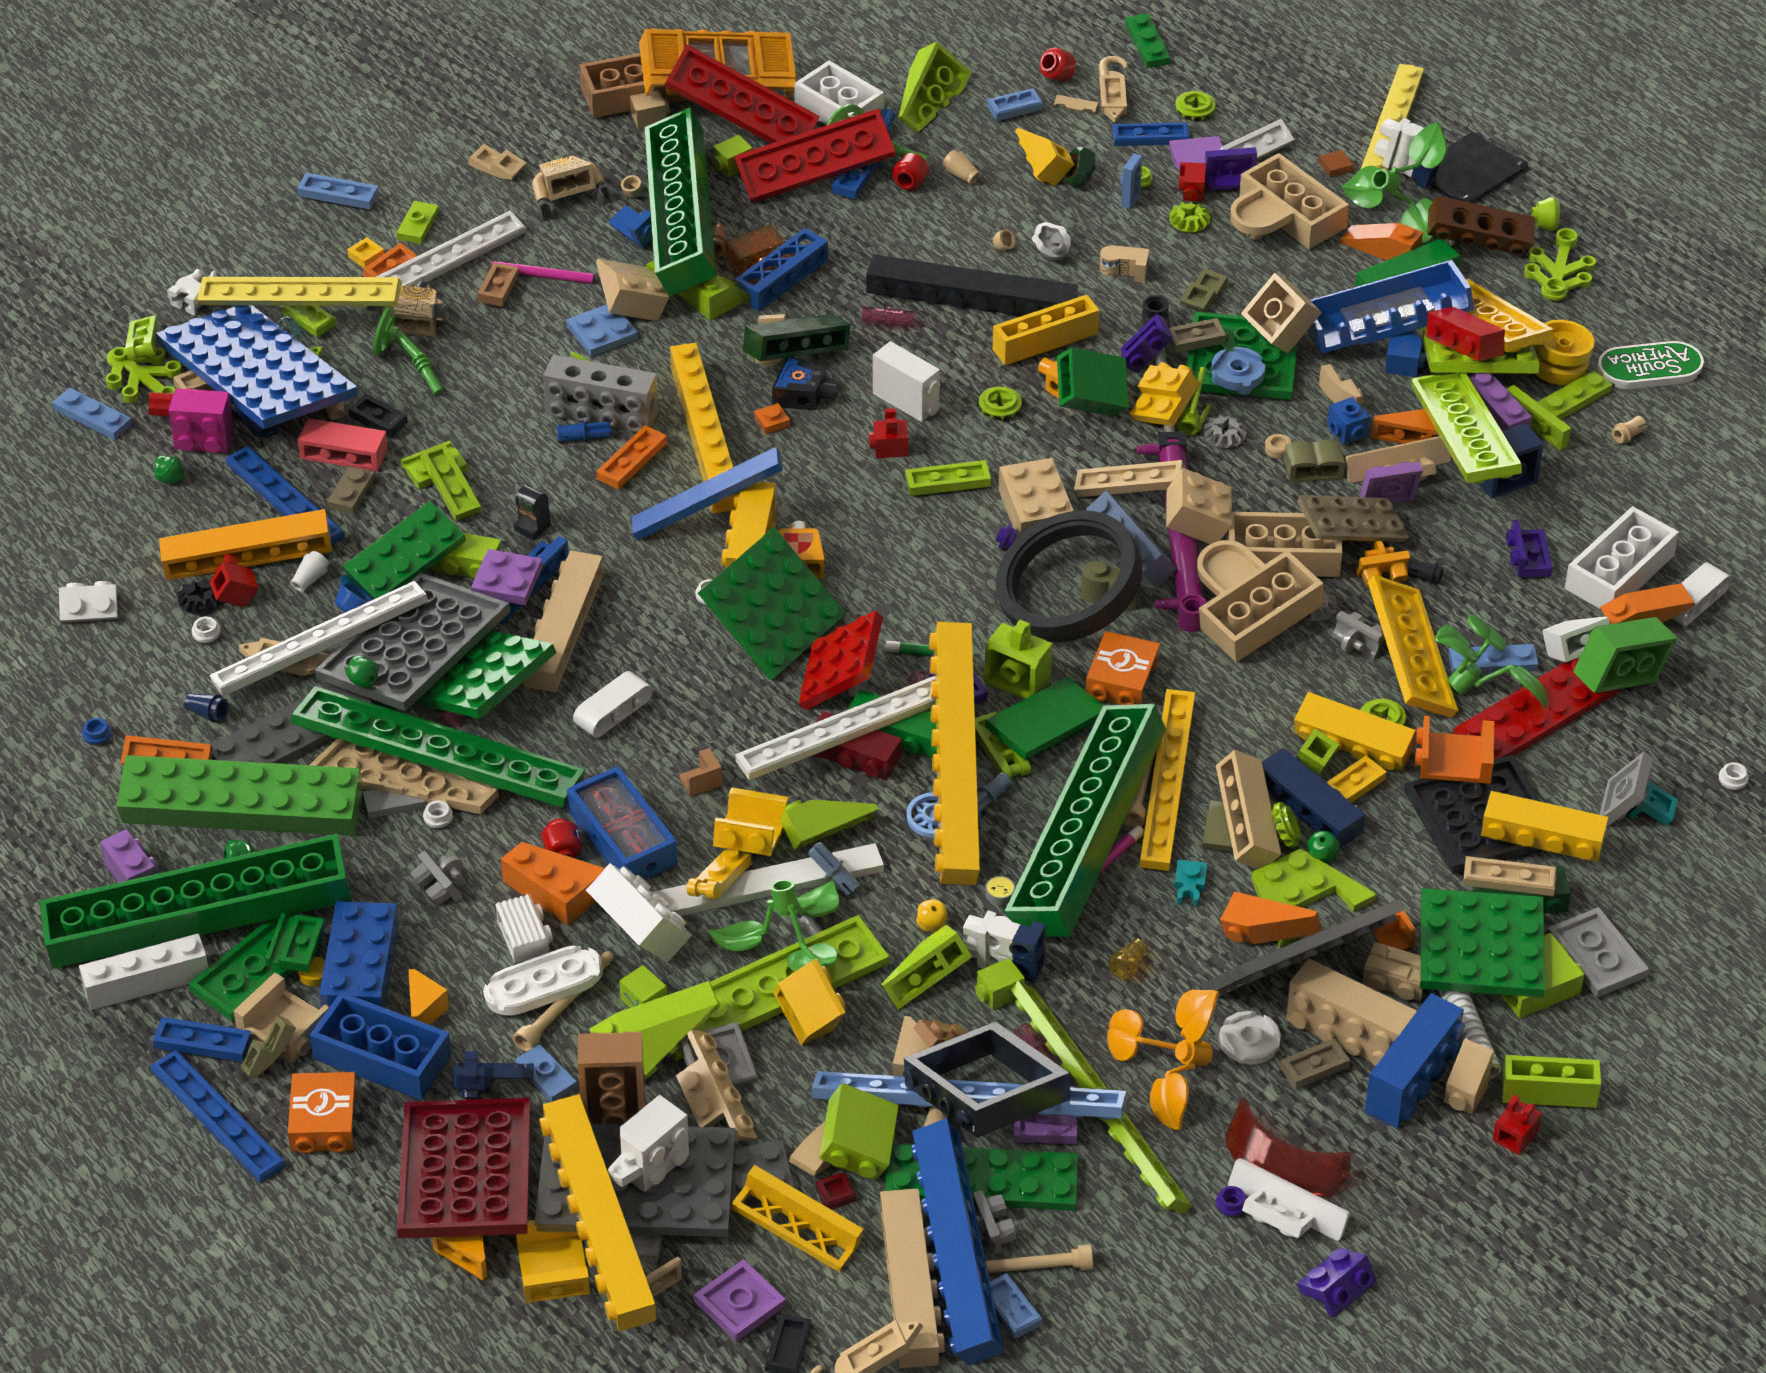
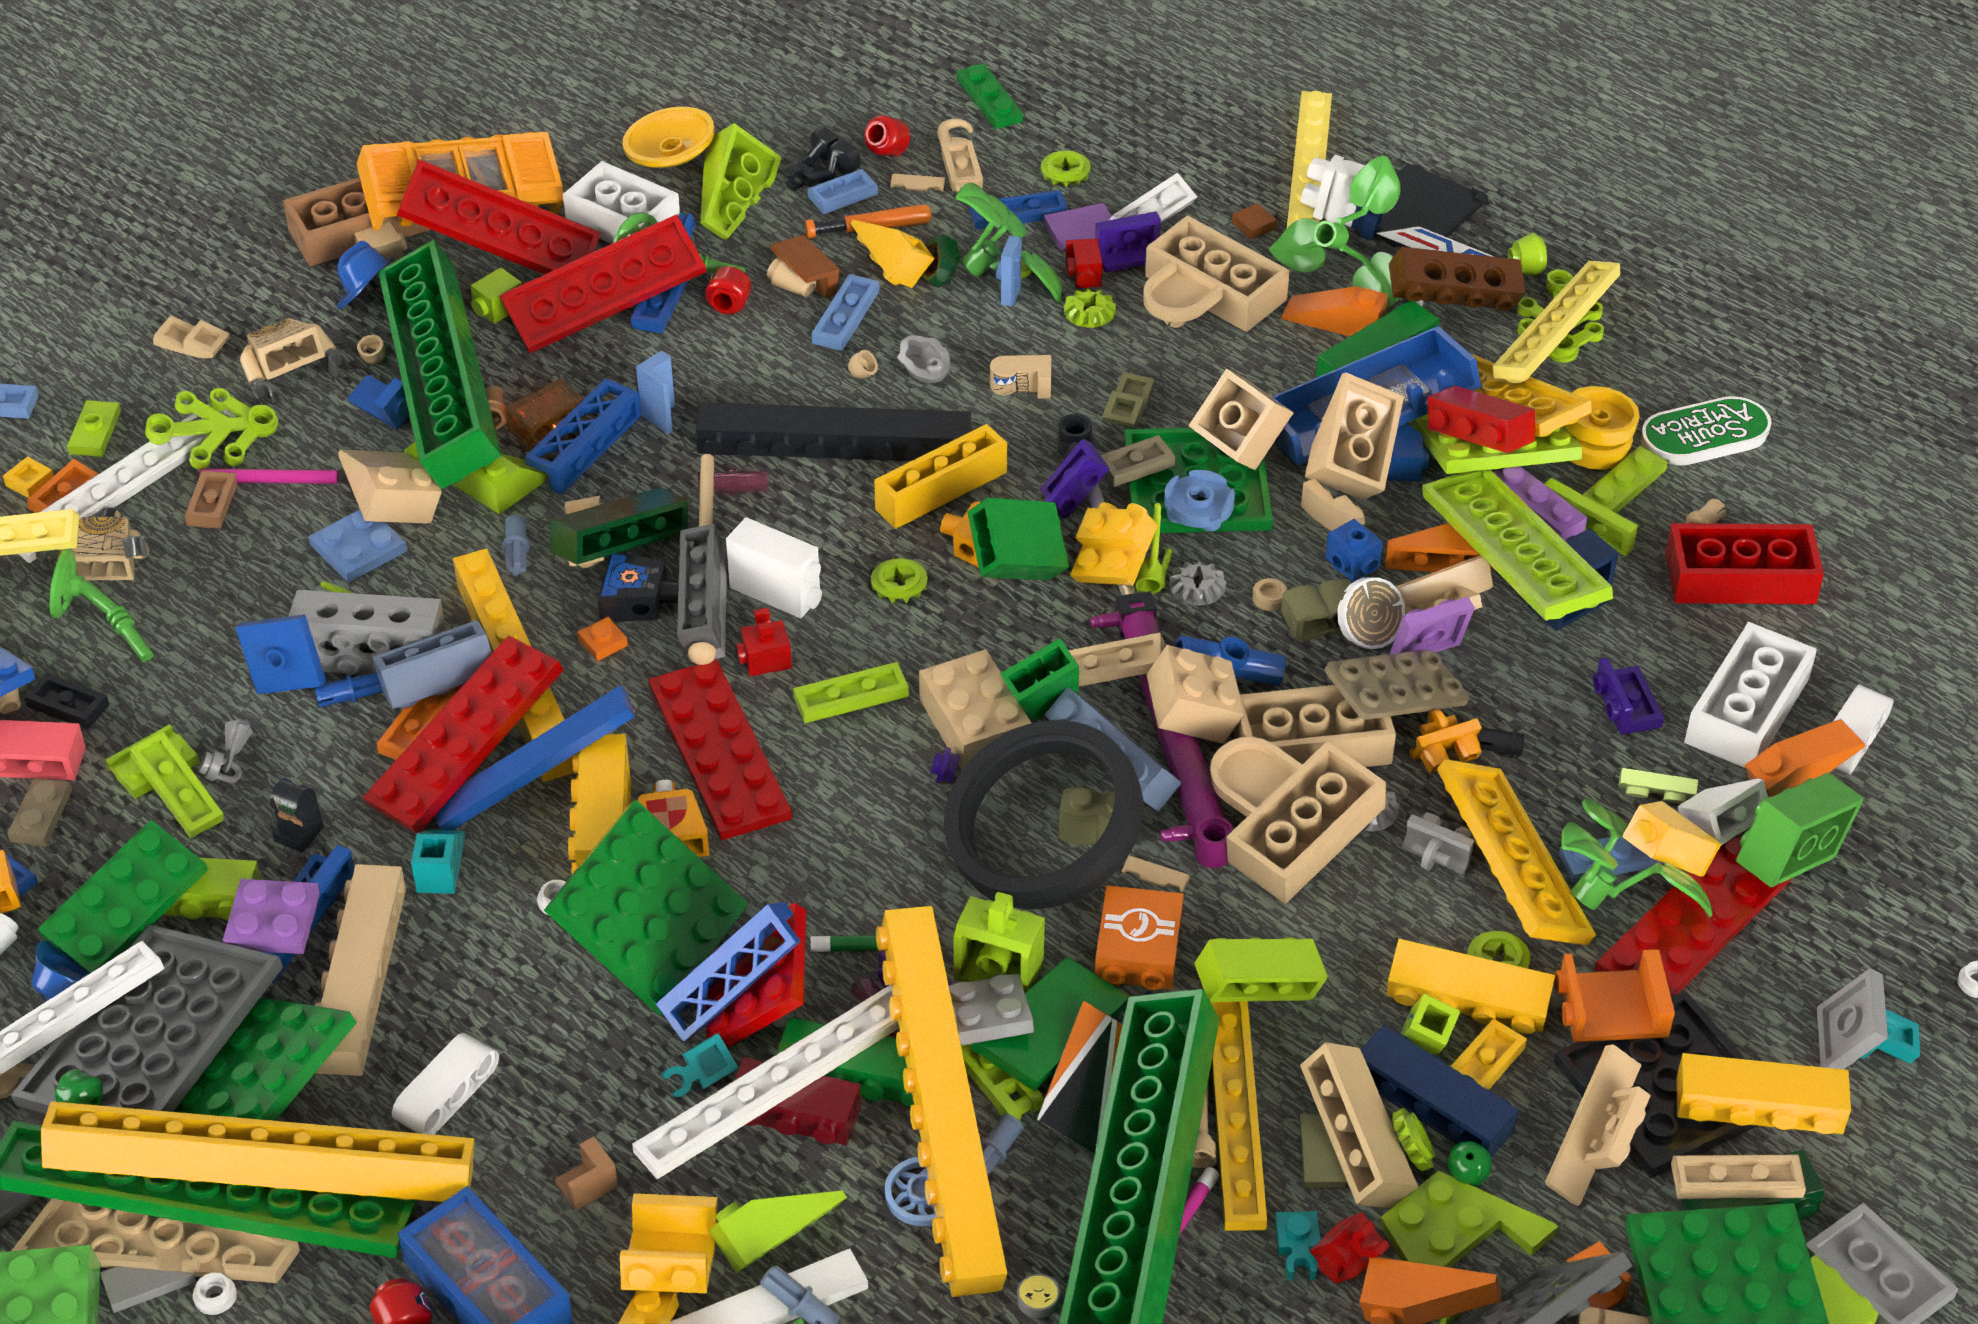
camera: 10 degrees left, 0 degrees up
(477, 725) = (255, 1152): none -> yellow brick
(496, 454) = (236, 735): none -> light grey piece
(507, 229) = (214, 424): none -> lime plant
(535, 399) = (281, 654): none -> blue plate
(628, 556) = (437, 860): none -> teal slope
(629, 123) = (357, 268): none -> blue piece
(645, 420) = (432, 664): none -> sand blue brick
(659, 471) = (463, 734): none -> red plate
(718, 343) = (516, 544): none -> sand blue axle
(795, 713) = (705, 1063): none -> teal plate
(816, 648) = (722, 965): none -> fence
(841, 241) = (656, 390): none -> medium blue panel
(844, 506) = (719, 750): none -> red plate
(852, 384) = (703, 580): none -> dark grey piece
(885, 46) = (669, 137): none -> yellow dish
(976, 158) = (809, 263): none -> dark orange panel
(998, 198) = (845, 312): none -> medium blue plate
(1001, 701) = (990, 1009): none -> light grey plate
(1011, 69) = (827, 147): none -> black piece
(1053, 129) = (887, 218): none -> orange piece
(1059, 754) = (1083, 1078): none -> sticker
(1087, 481) = (1042, 678): none -> green torso
(1113, 166) = (985, 253): none -> bright green plant
(1146, 630) = (1155, 873): none -> tan piece
(1203, 700) = (1260, 969): none -> lime brick
(1221, 886) = (1348, 1247): none -> red brick
(1242, 489) = (1246, 662): none -> blue piece
(1346, 466) = (1371, 612): none -> tile
(1367, 337) = (1356, 438): none -> tan slope
(1421, 832) = (1601, 1125): none -> tan bracket
(1466, 192) = (1424, 239): none -> white sticker
(1521, 611) = (1642, 783): none -> yellowish green plate
(1527, 648) = (1671, 838): none -> yellow slope
(1551, 267) = (1555, 321): none -> light yellow plate
(1645, 465) = (1743, 563): none -> red brick

